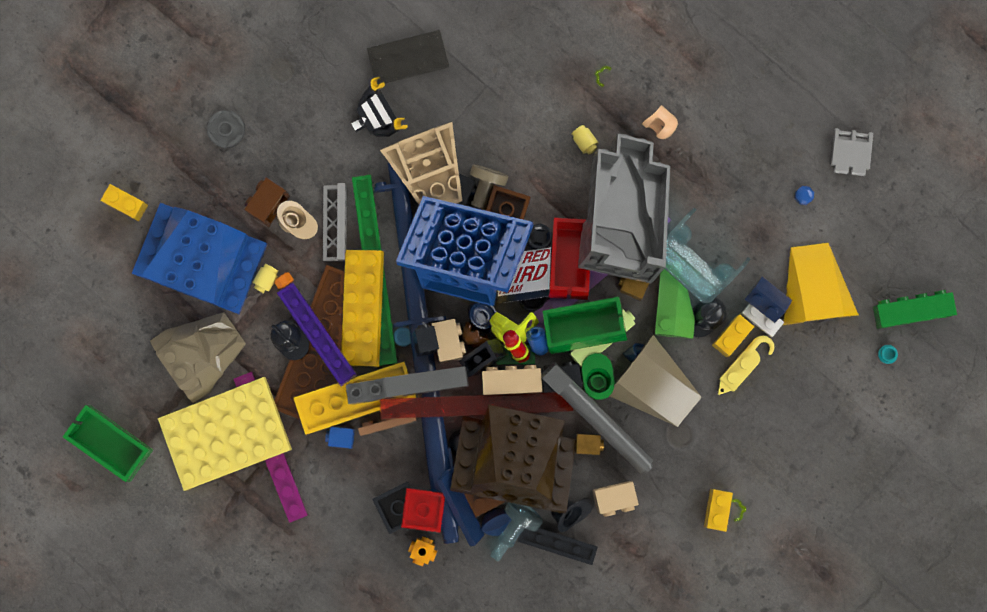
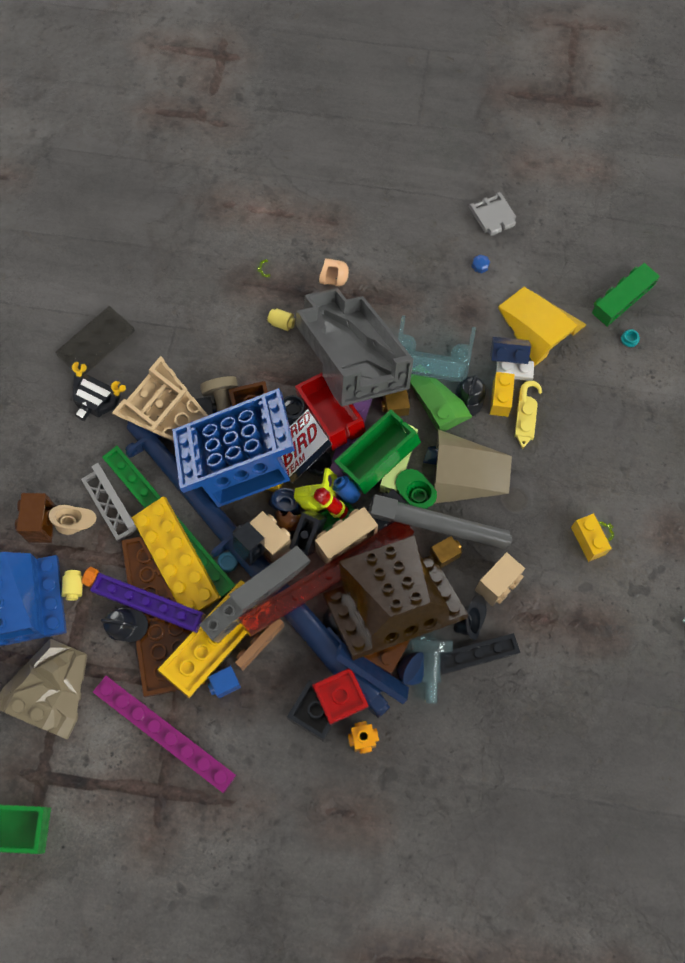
camera: 30 degrees left, 15 degrees down
(224, 433) = (111, 748): light yellow plate -> none

